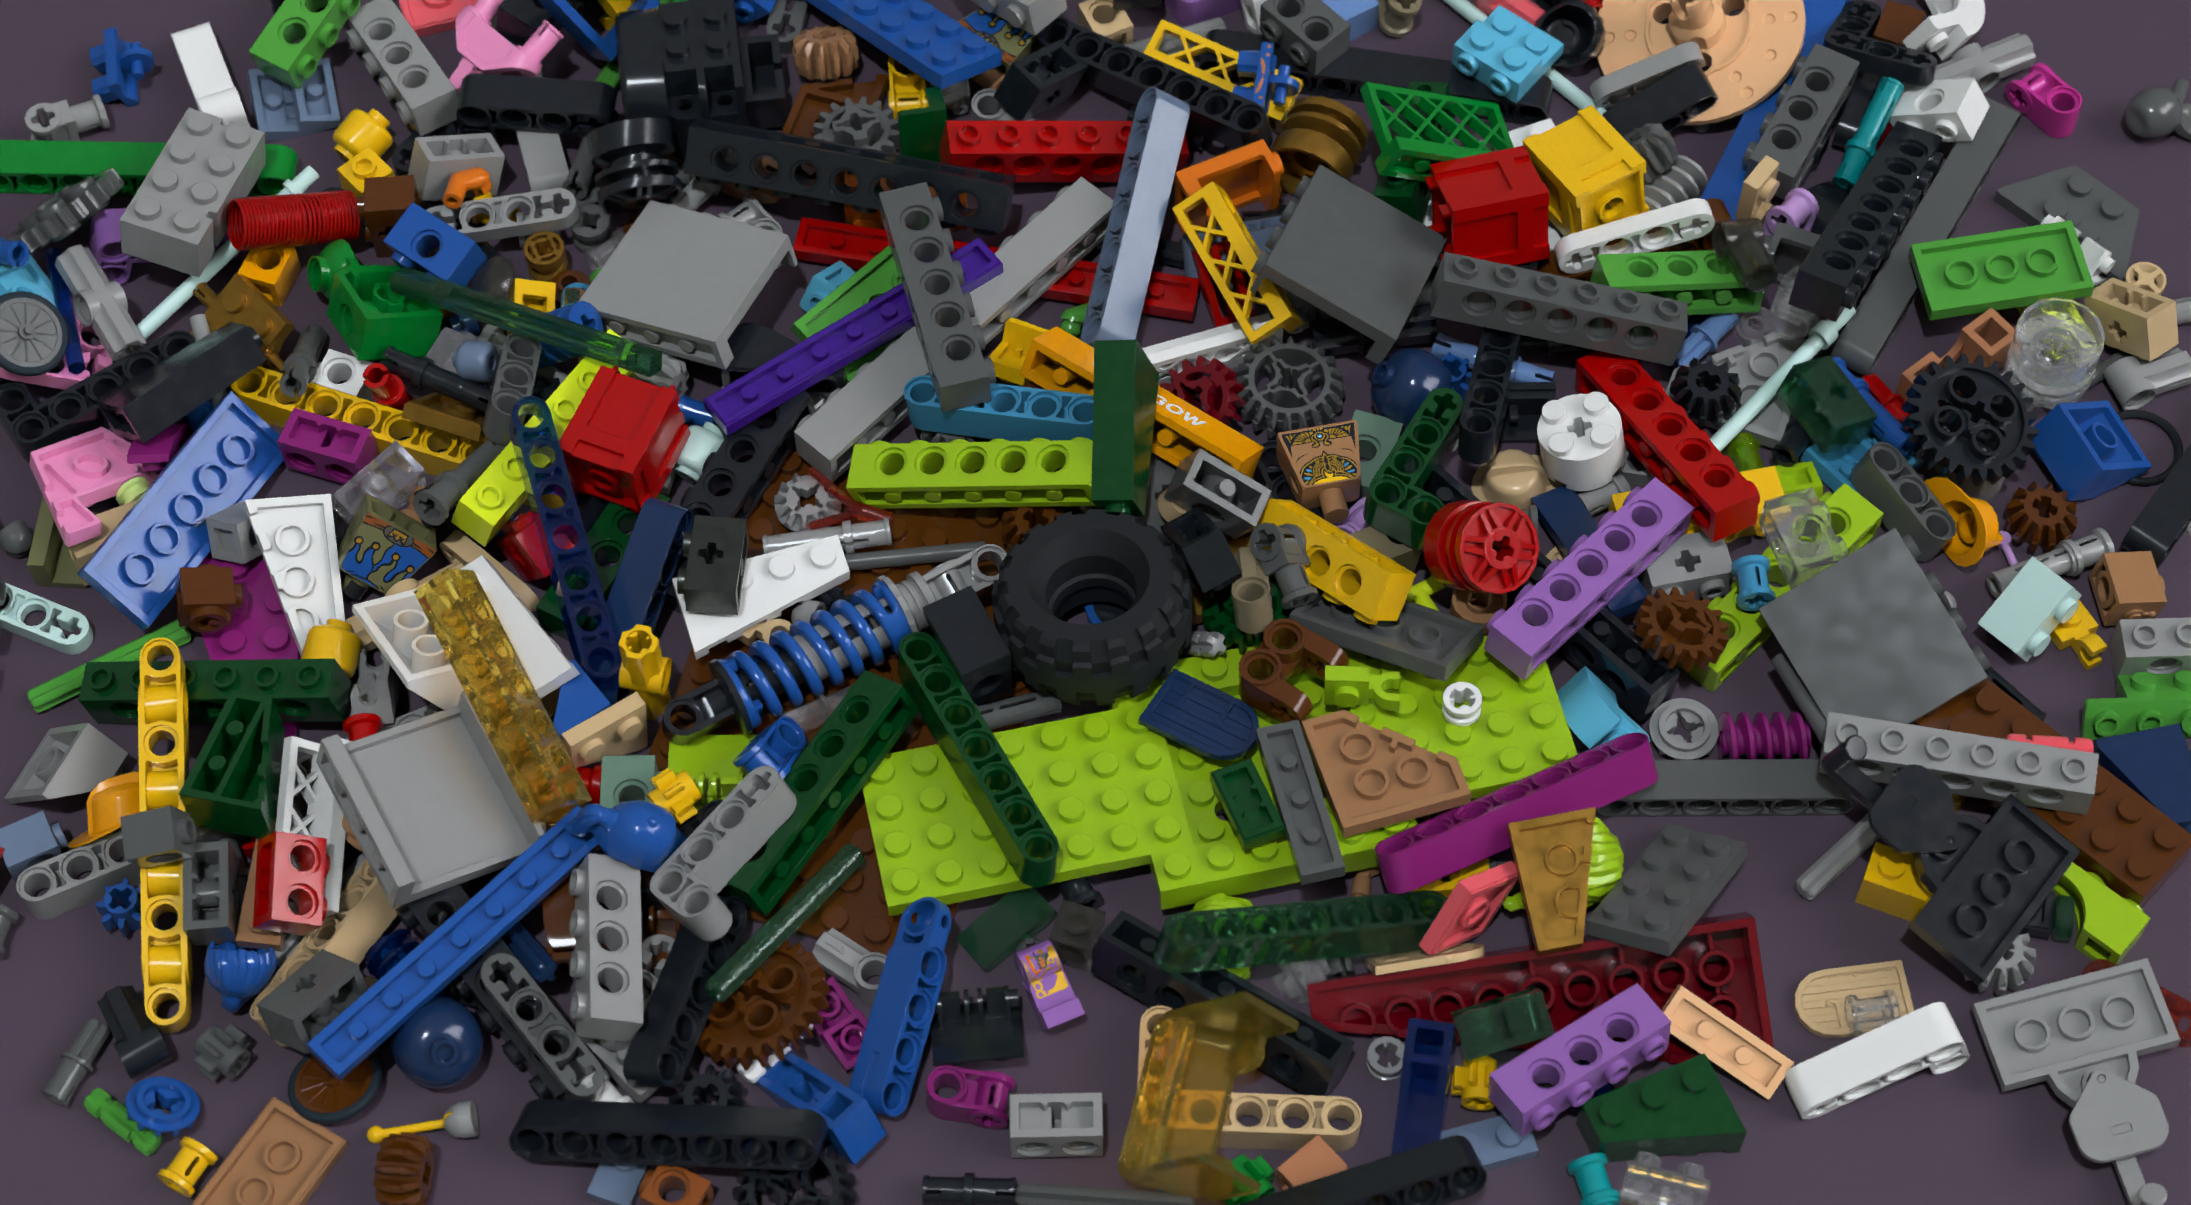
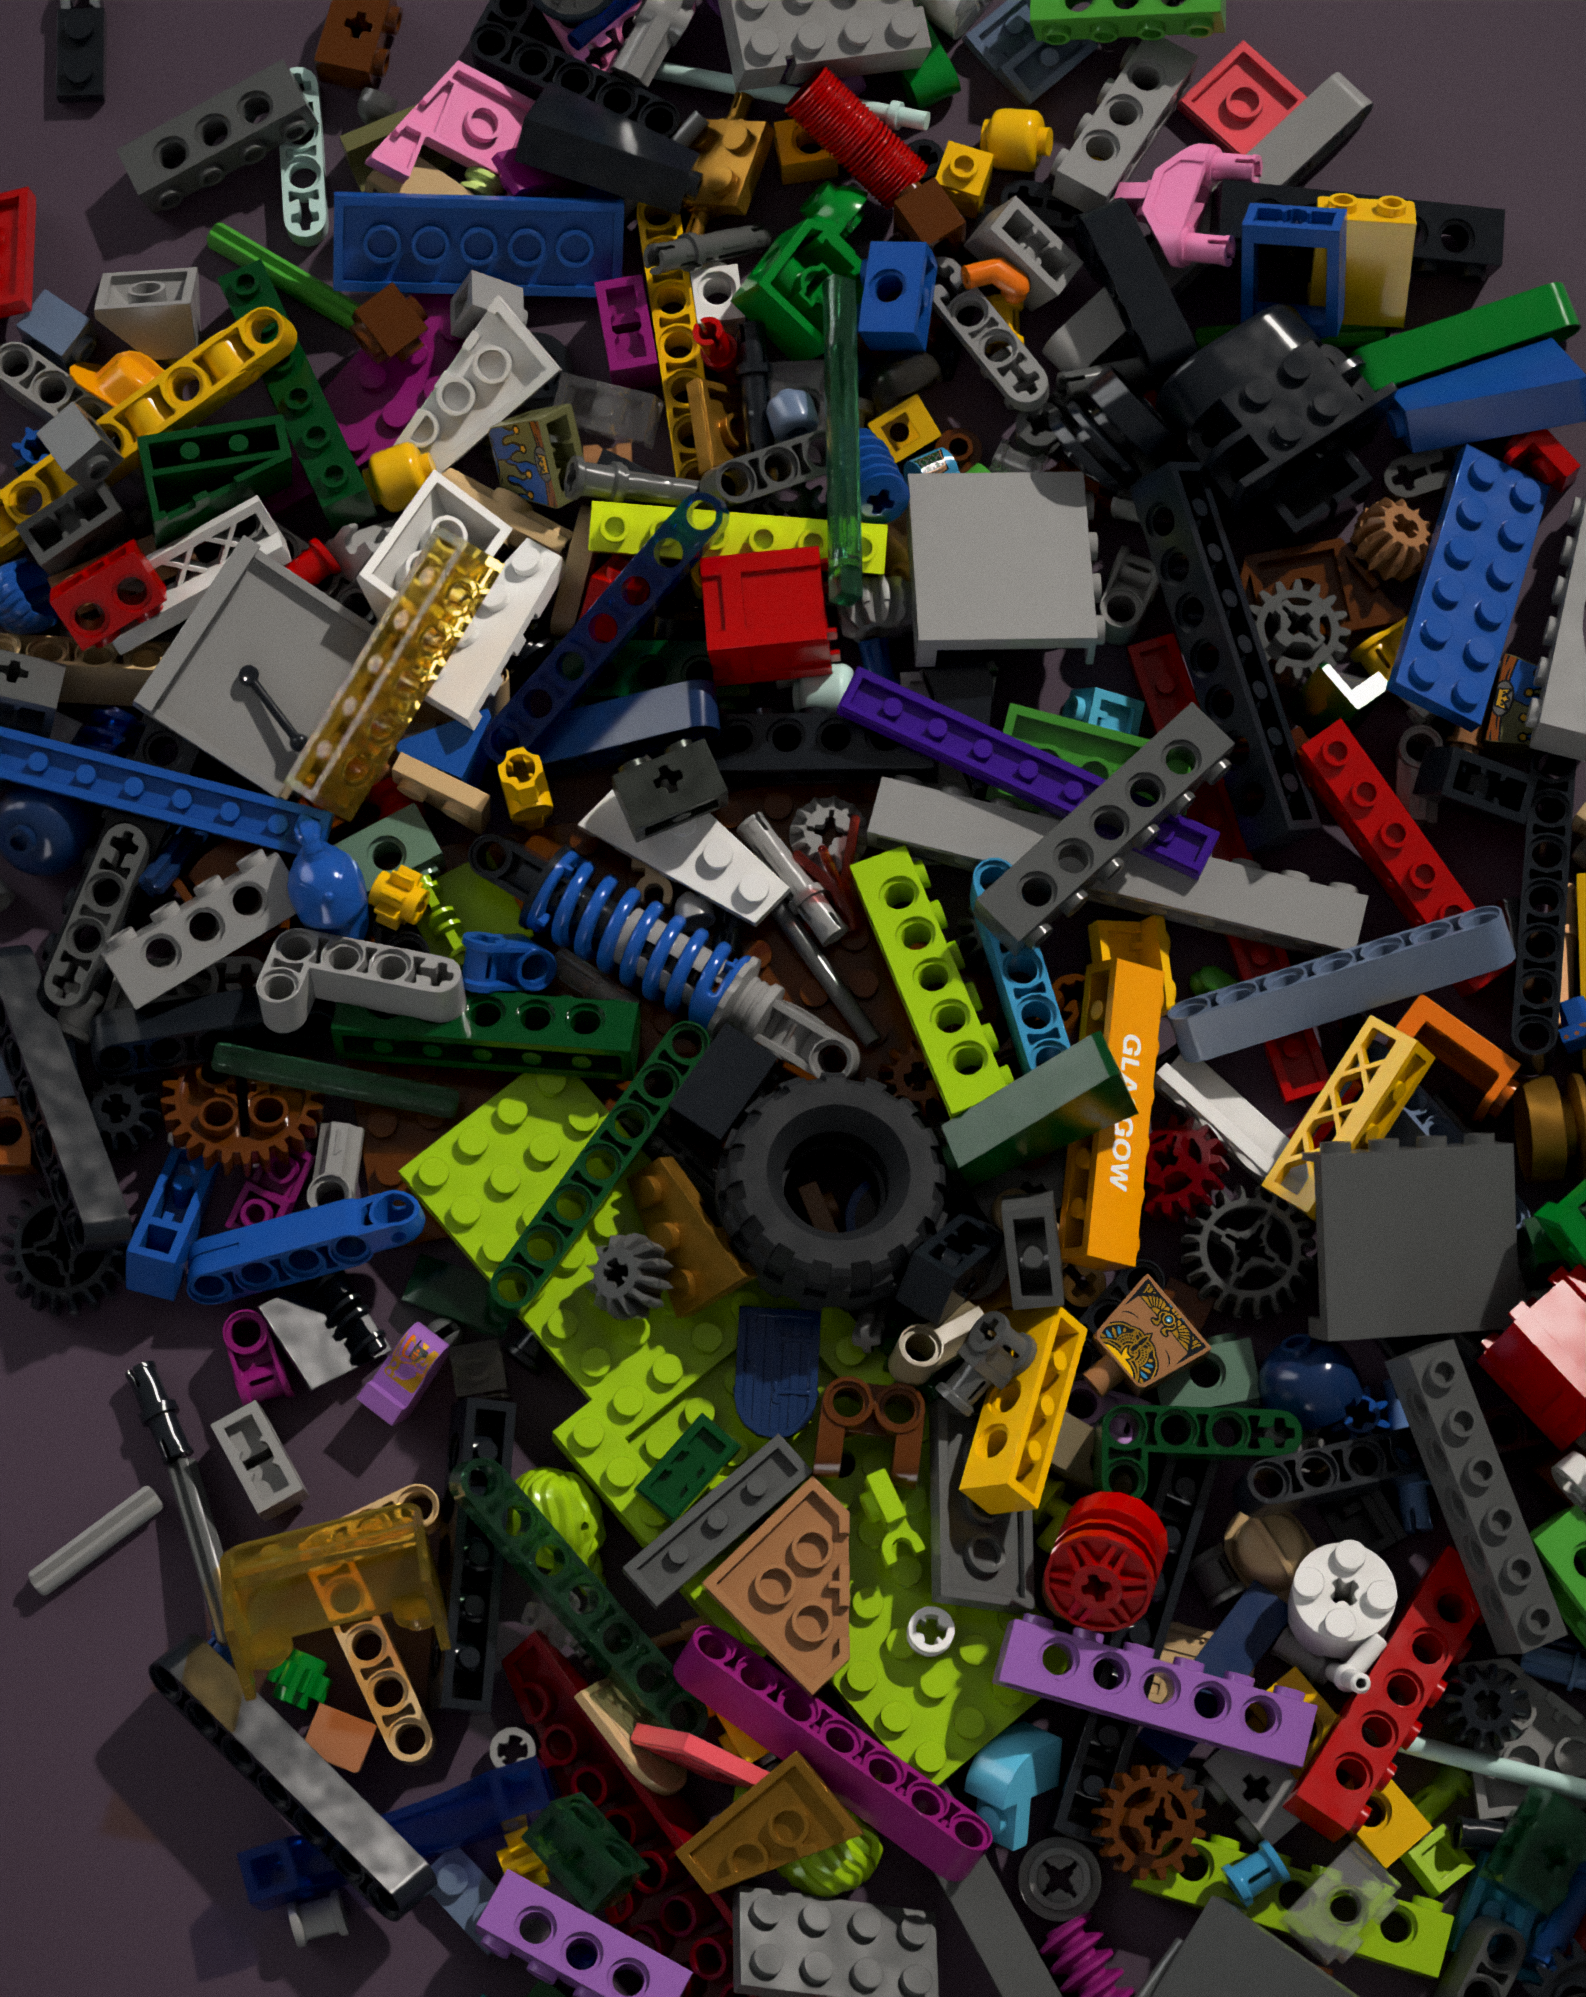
camera: 65 degrees right, 15 degrees up
(428, 812) = (249, 677): none -> black hinge
(545, 256) = (976, 416): pearl gold wheel -> none
(1071, 722) = (698, 1250): none -> pearl gold wing
(1082, 786) = (629, 1276): none -> dark grey gear
(1641, 449) = (1351, 1675): none -> white piece

